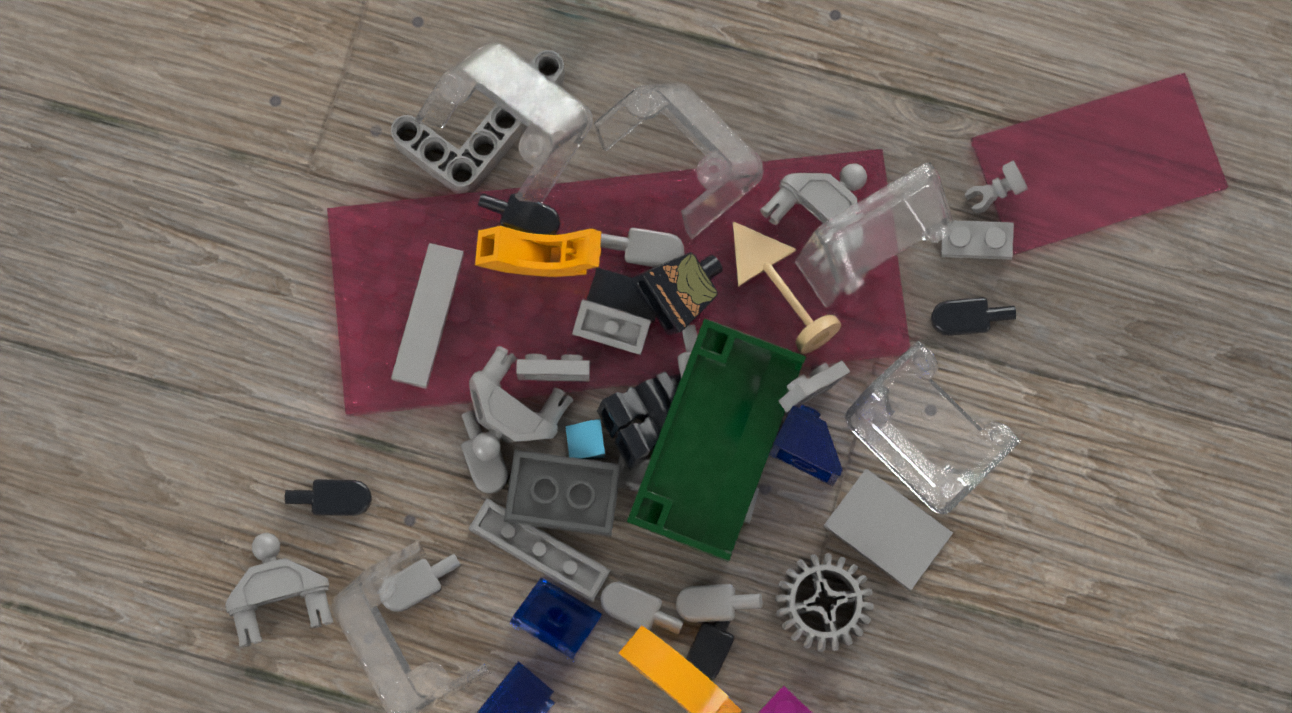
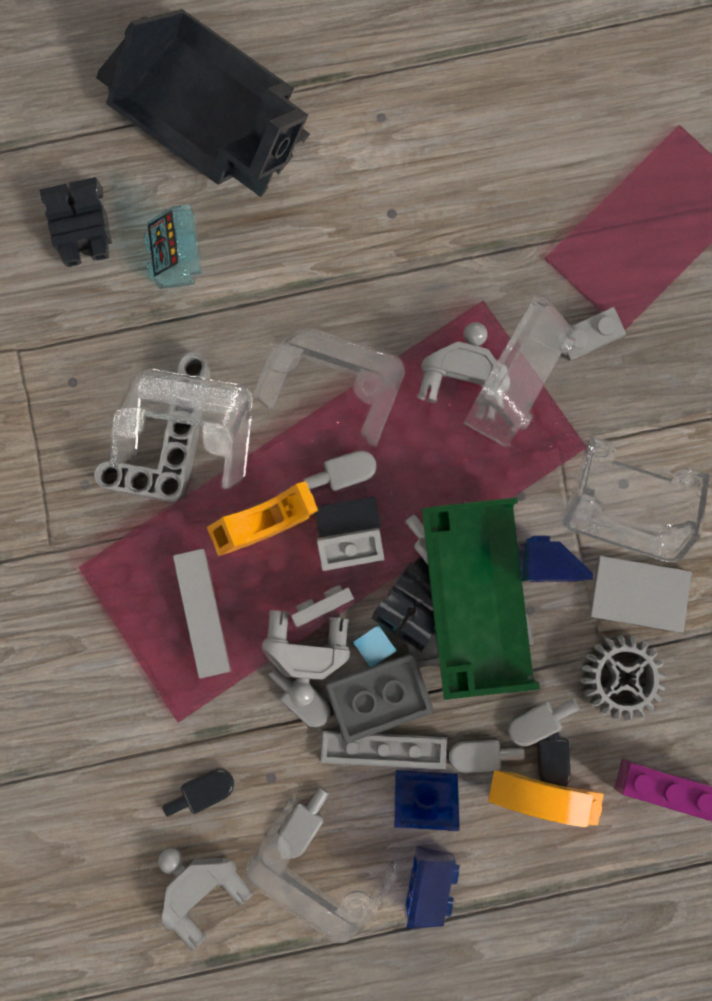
camera: 20 degrees left, 5 degrees up
(522, 215) = (241, 496): black piece -> none
(679, 289) = (388, 493): torso -> none
(758, 254) = (433, 431): tan piece -> none
(820, 381) = (526, 521): light grey plate -> none
(968, 316) = (615, 397): black piece -> none
(1012, 181) = (596, 274): light grey piece -> none

